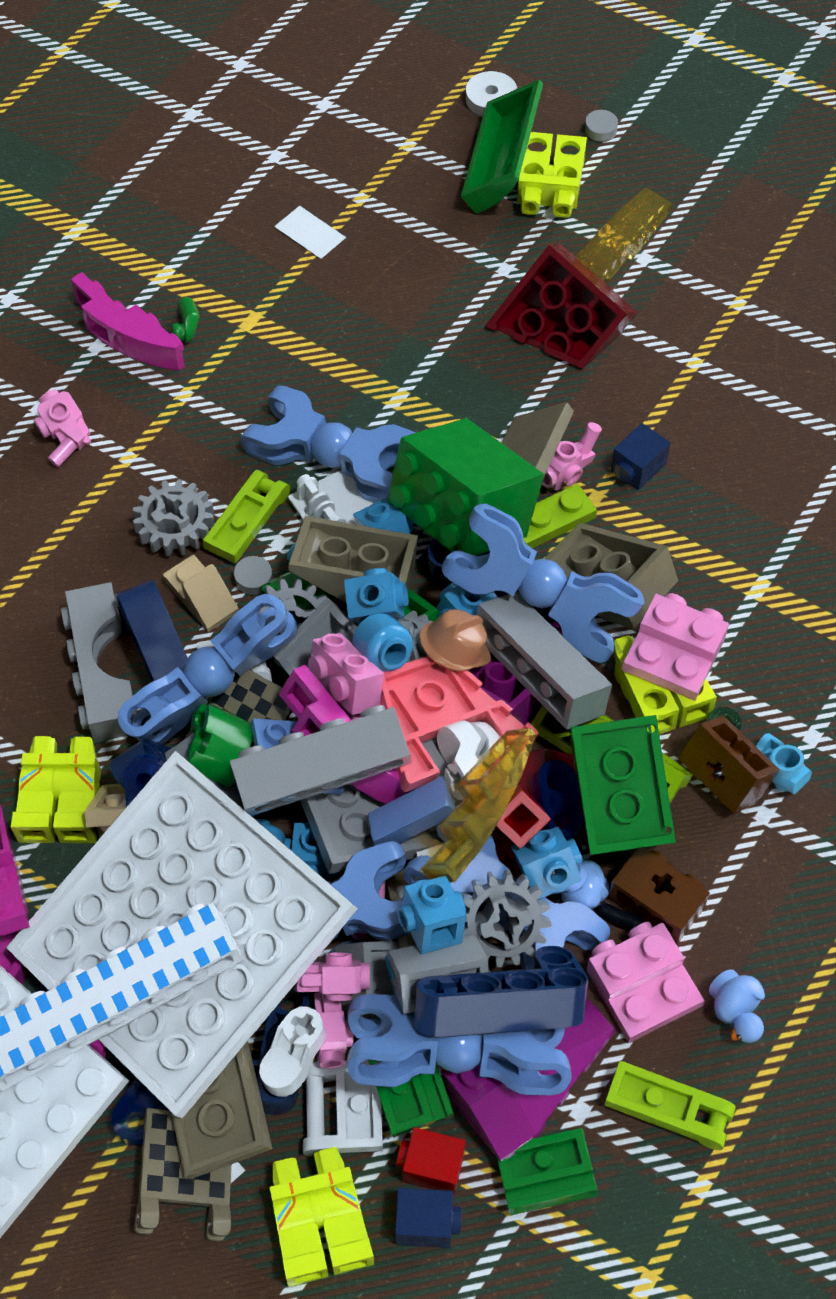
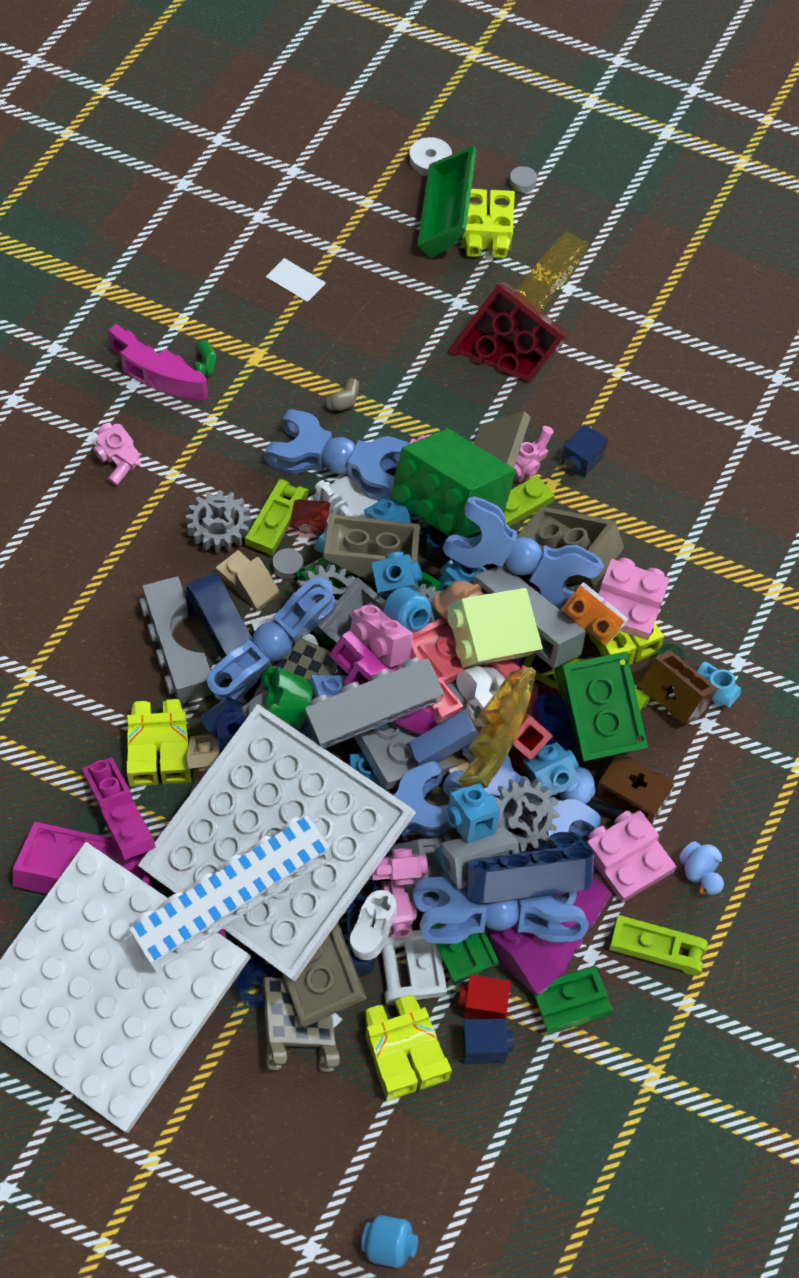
camera: 10 degrees left, 0 degrees up
(284, 517) = (309, 516): none -> clear red slope
(351, 376) = (344, 399): none -> dark tan arm
(490, 672) = (494, 627): none -> yellowish green brick
(617, 659) = (590, 613): none -> orange hips

